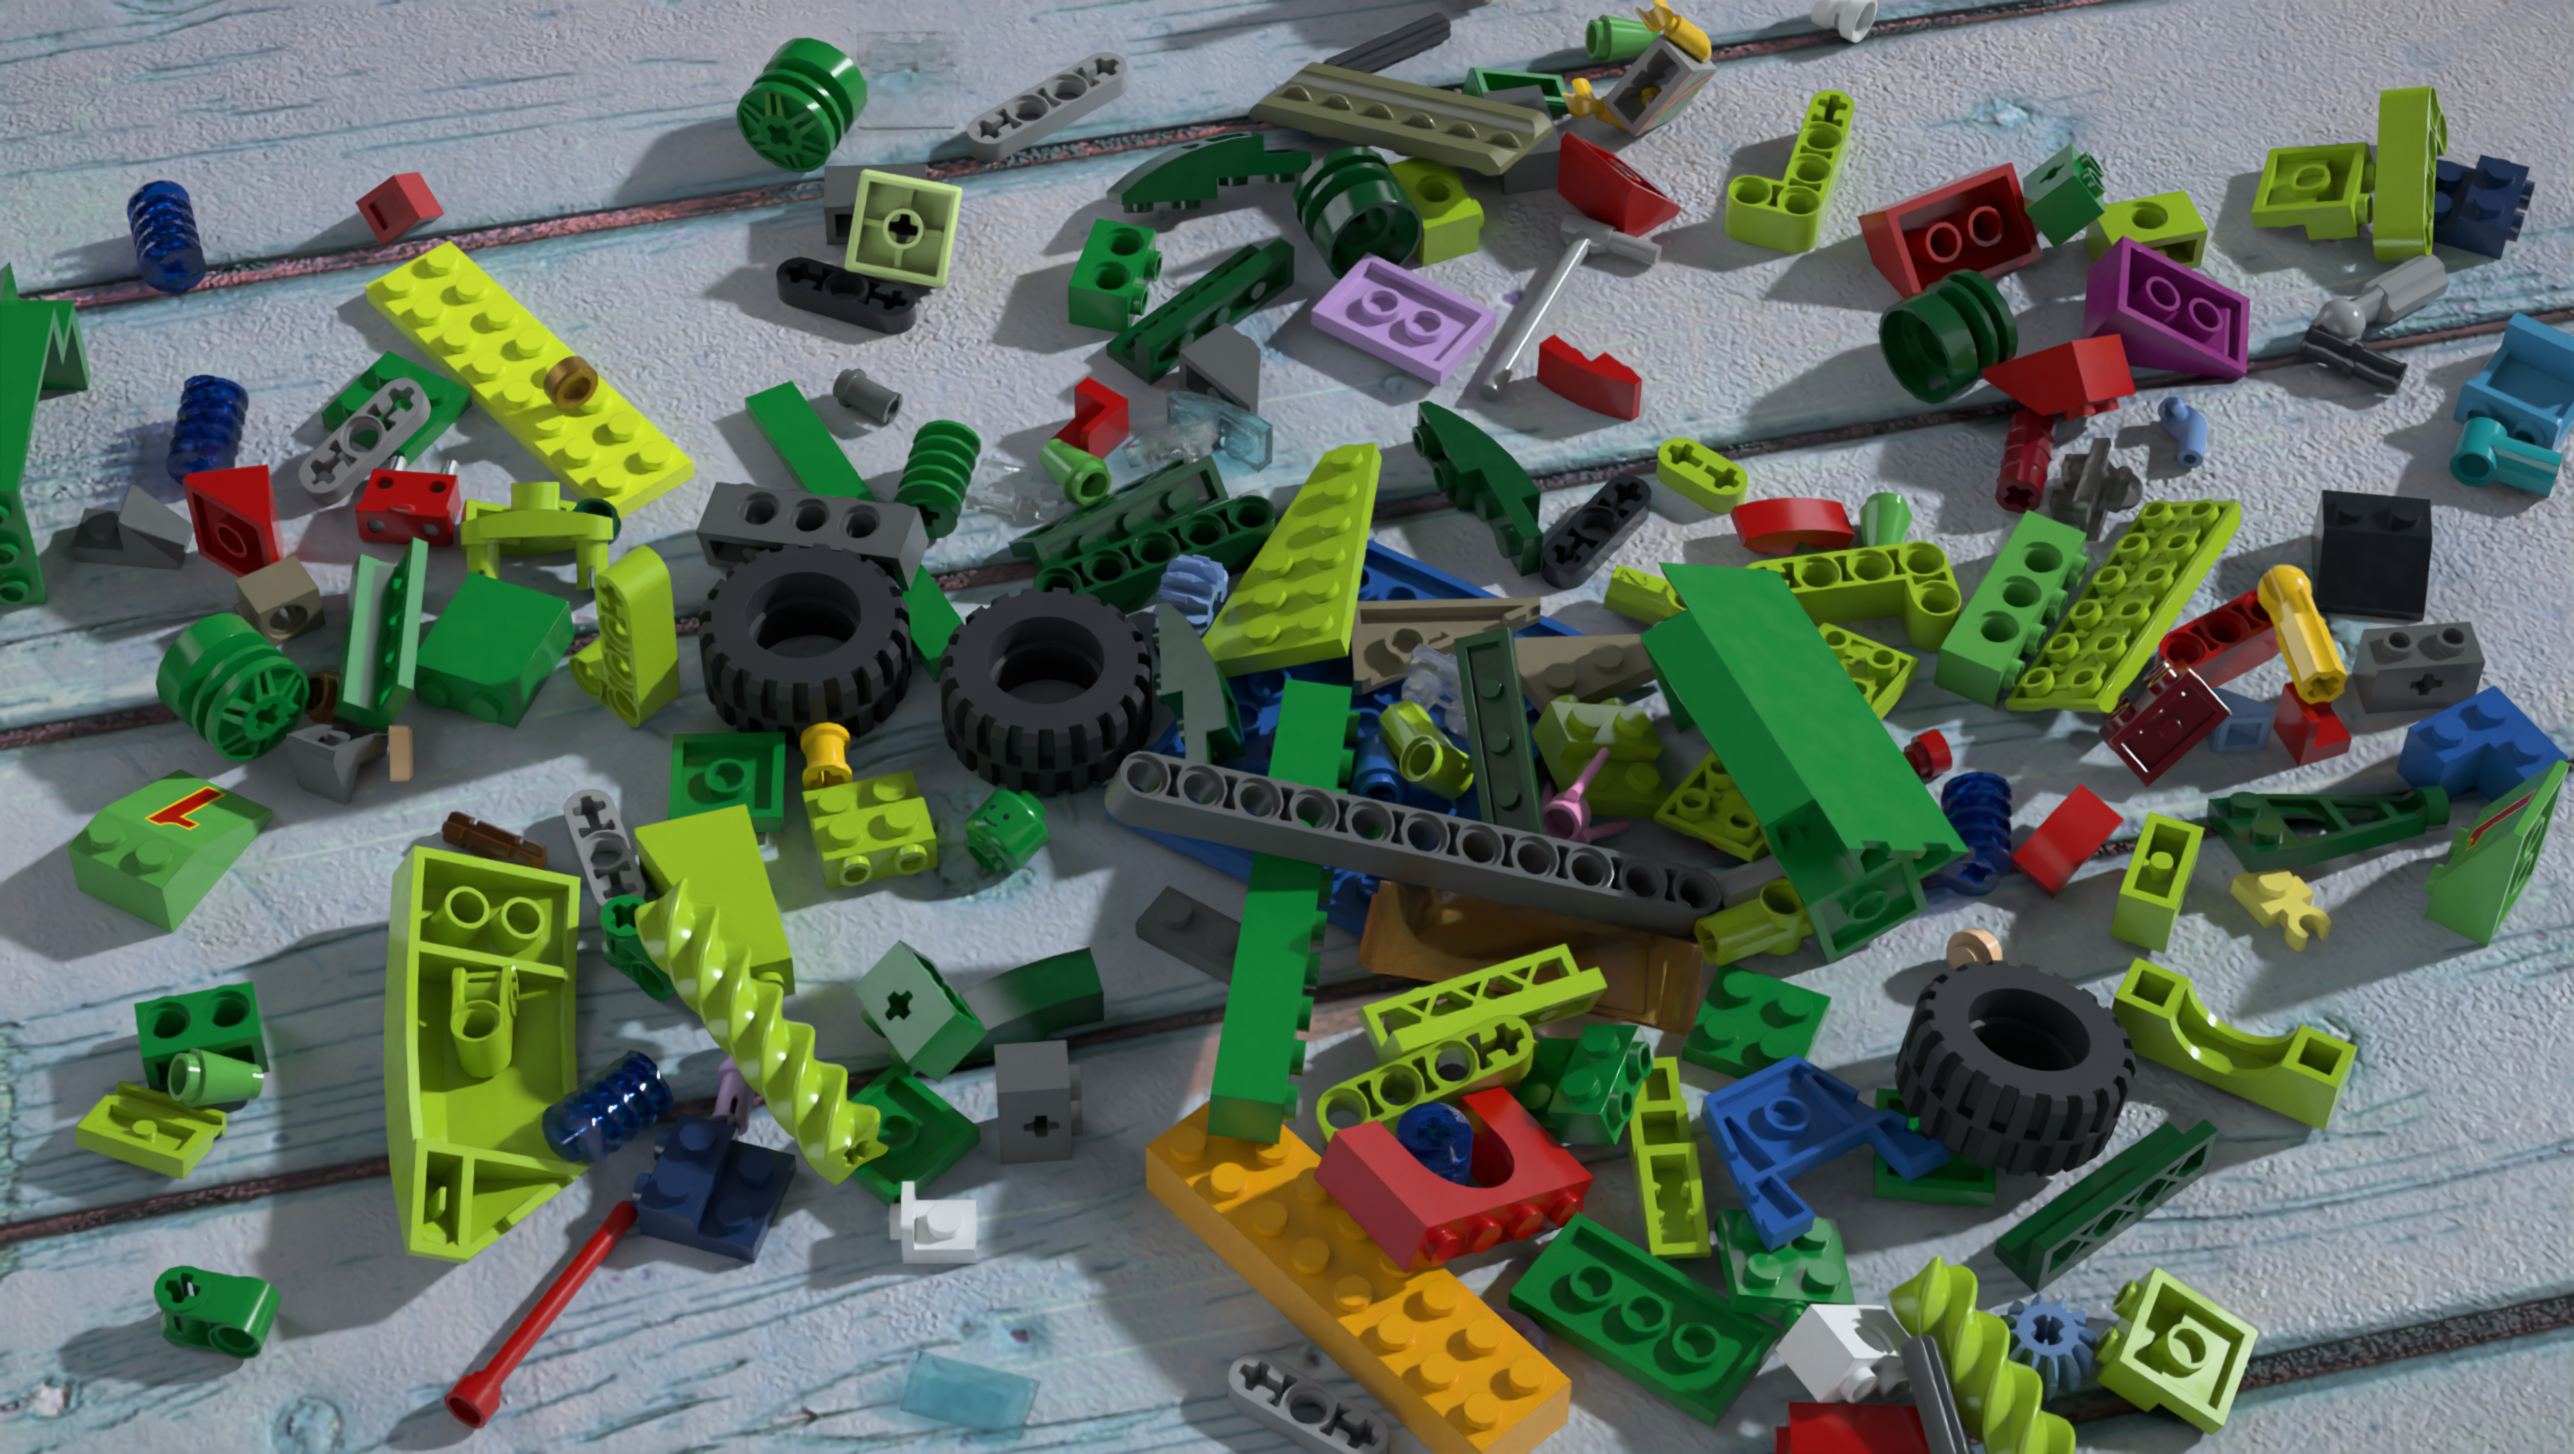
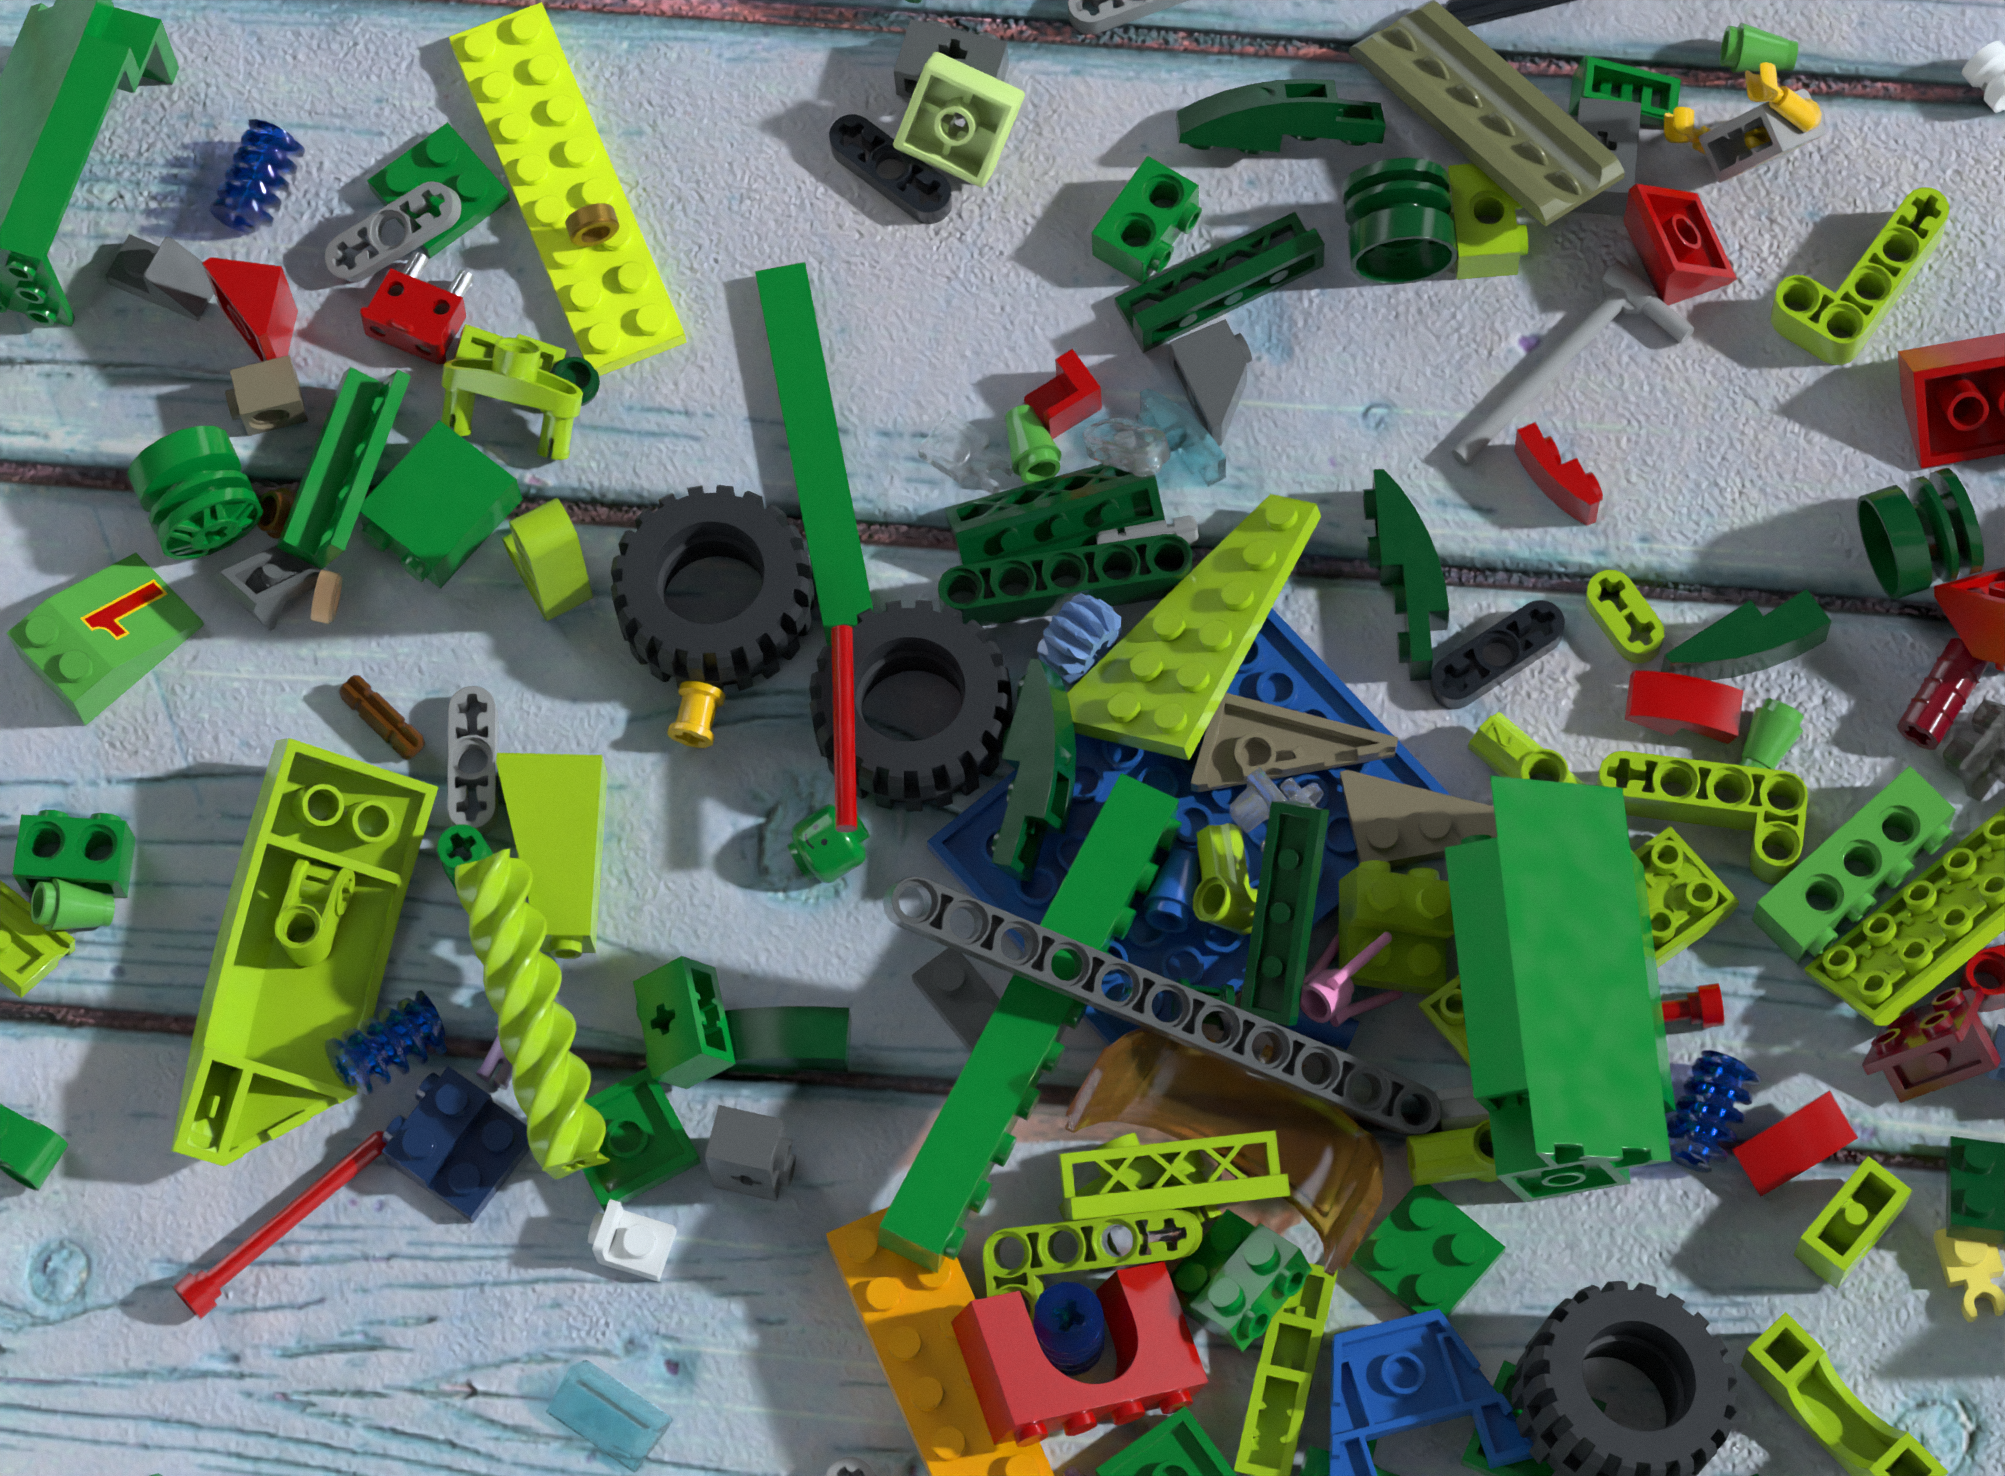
camera: 25 degrees right, 20 degrees up
(729, 771) = (603, 711): green plate -> none
(754, 519) = (819, 508): dark grey brick -> none
(856, 390) = (871, 301): dark grey pin -> none
(870, 829) = (713, 799): lime plate -> none
(939, 474) = (894, 419): green piece -> none
(994, 703) = (844, 729): none -> red bar
(1403, 319) = (1407, 348): lavender plate -> none
(1833, 460) = (1751, 642): none -> dark green slope
(1972, 946) = (1654, 1243): light nougat plate -> none

